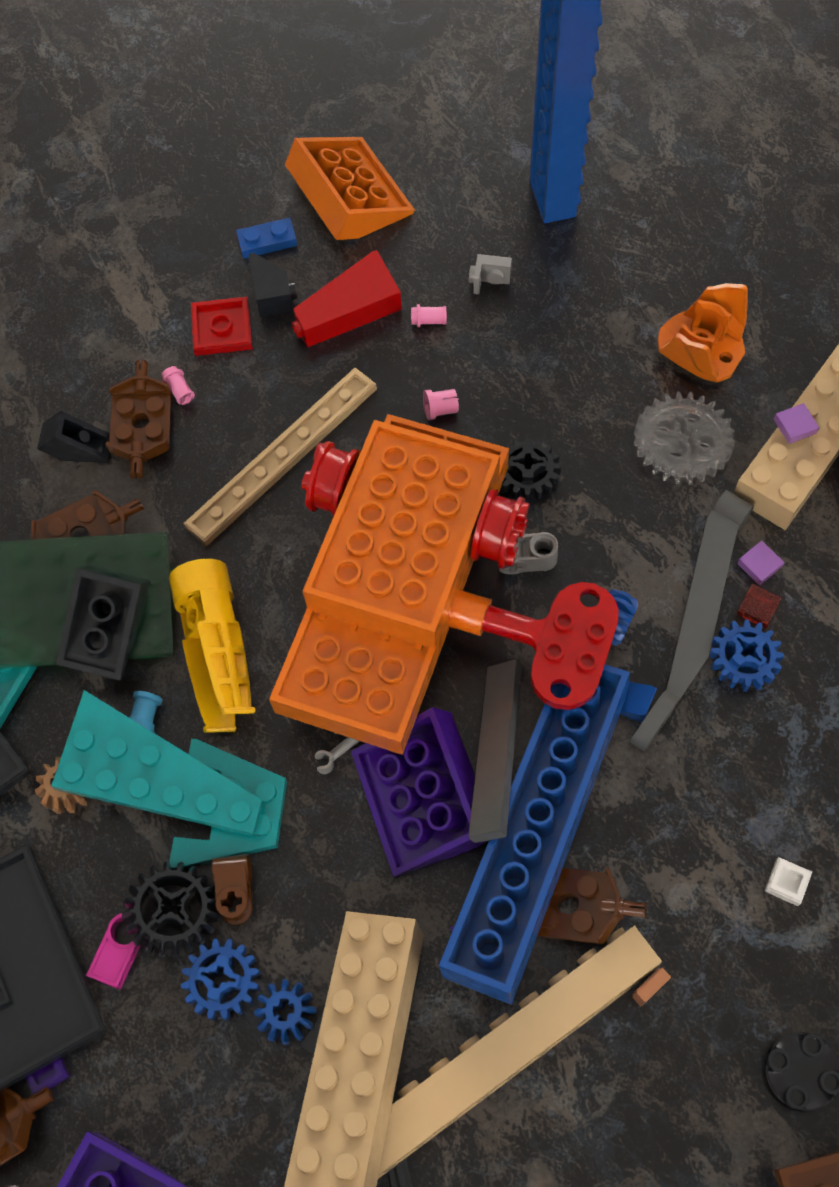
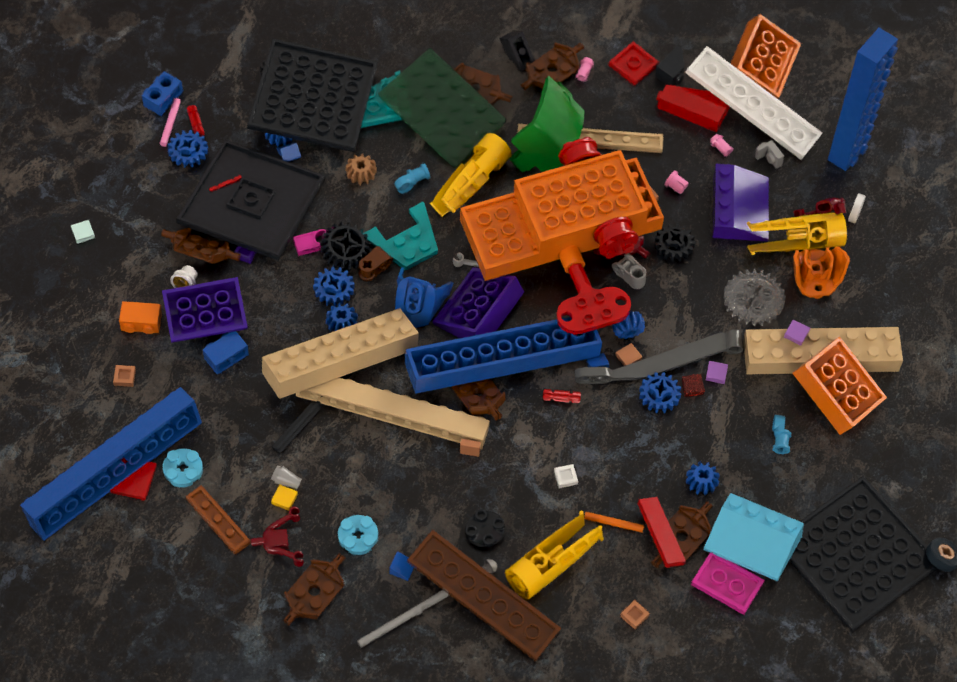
camera: 45 degrees right, 5 degrees down
(102, 621) = (441, 124): black slope -> none
(132, 767) = (390, 186): teal wing -> none
(254, 494) = (554, 124): none -> green panel
(266, 237) = (697, 43): blue plate -> none
(351, 877) = (422, 303): none -> blue piece
(406, 235) = (753, 102): none -> white plate
(495, 752) = (517, 316): dark grey tile -> none
(530, 358) = (738, 199): none -> dark purple slope
(621, 265) = (825, 206): none -> dark red piece
(639, 317) = (830, 233): none -> yellow piece
(649, 236) = (856, 208): none -> white piece
(653, 788) = (561, 396): none -> red axle
(654, 652) = (628, 355): none -> nougat tile

